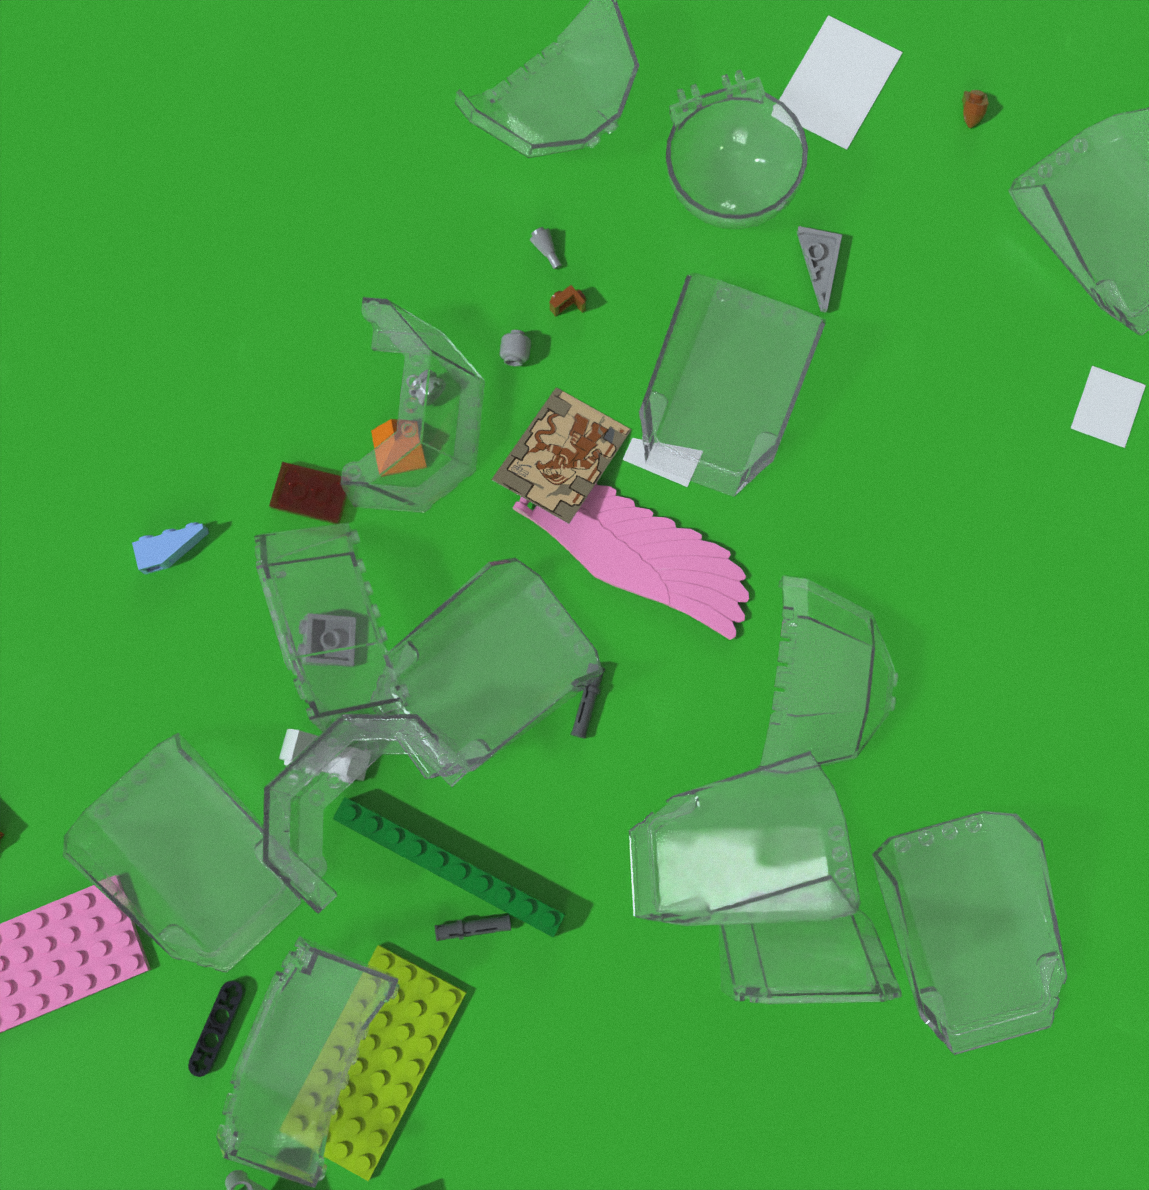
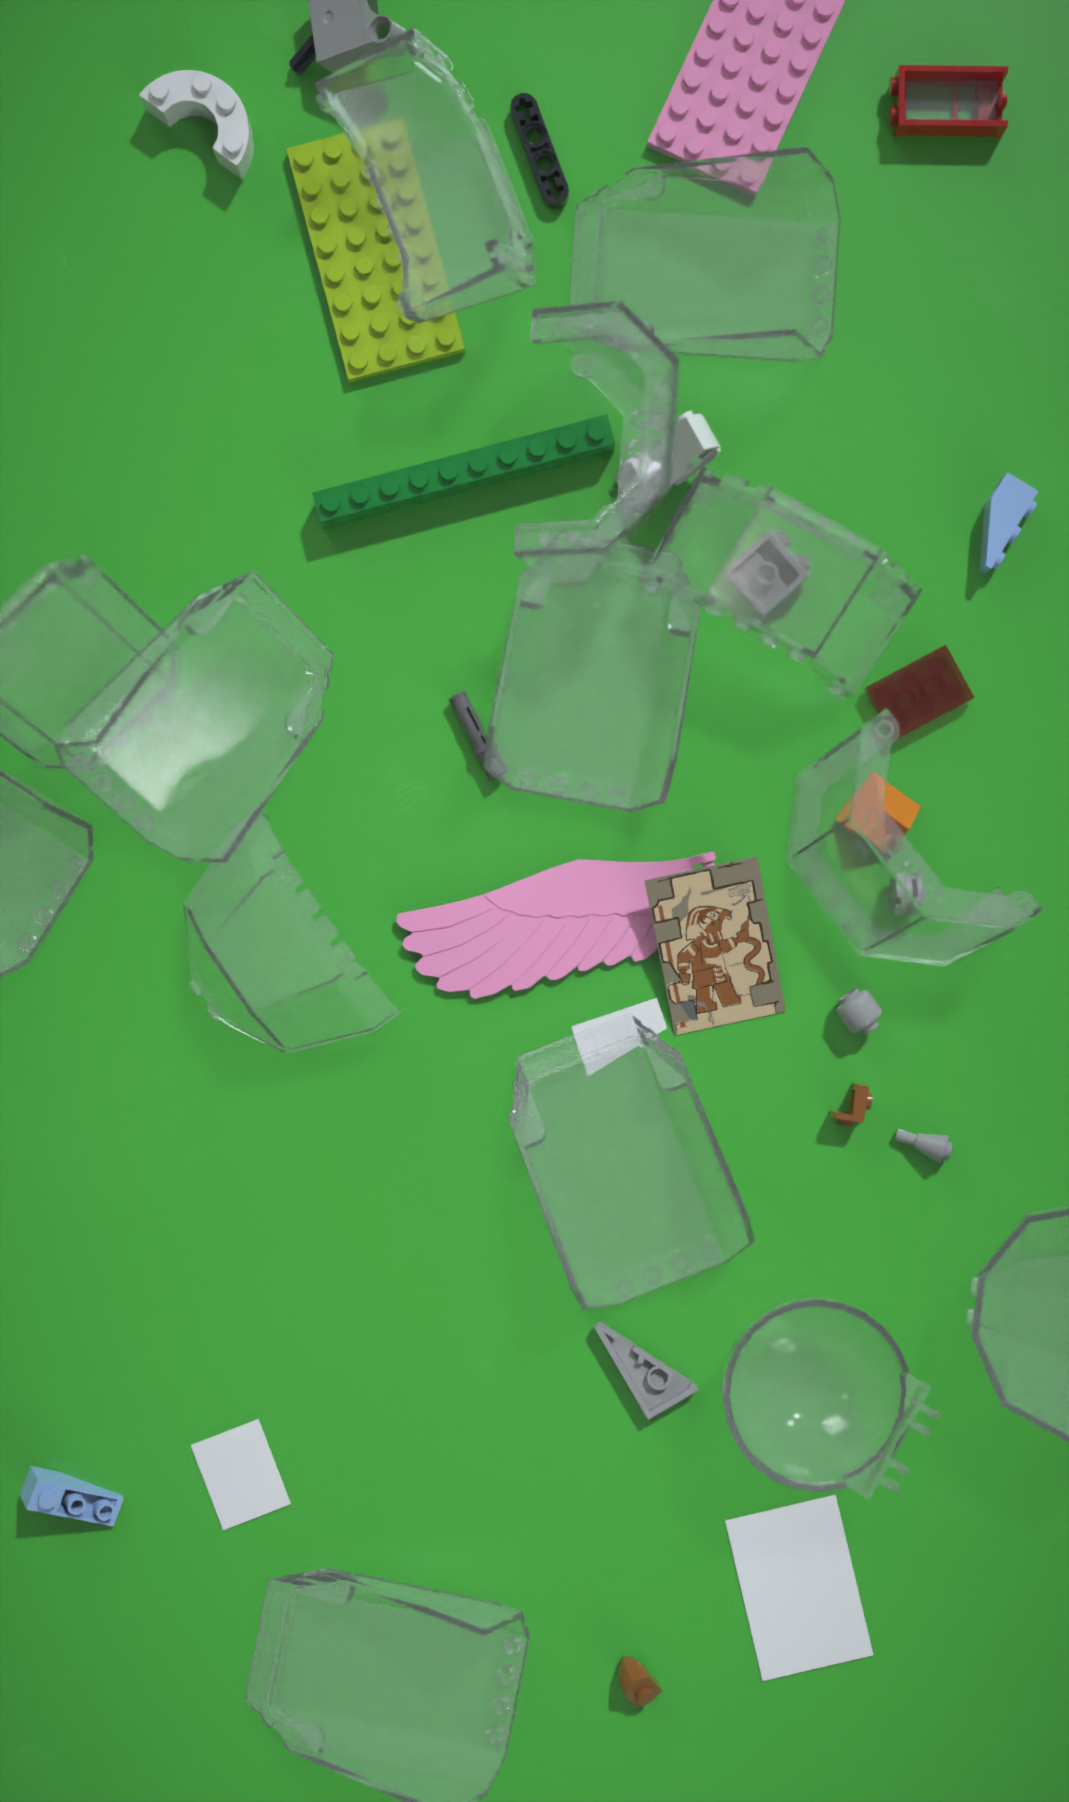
camera: 135 degrees right, 10 degrees up
(474, 927) = (398, 435): dark grey pin -> none

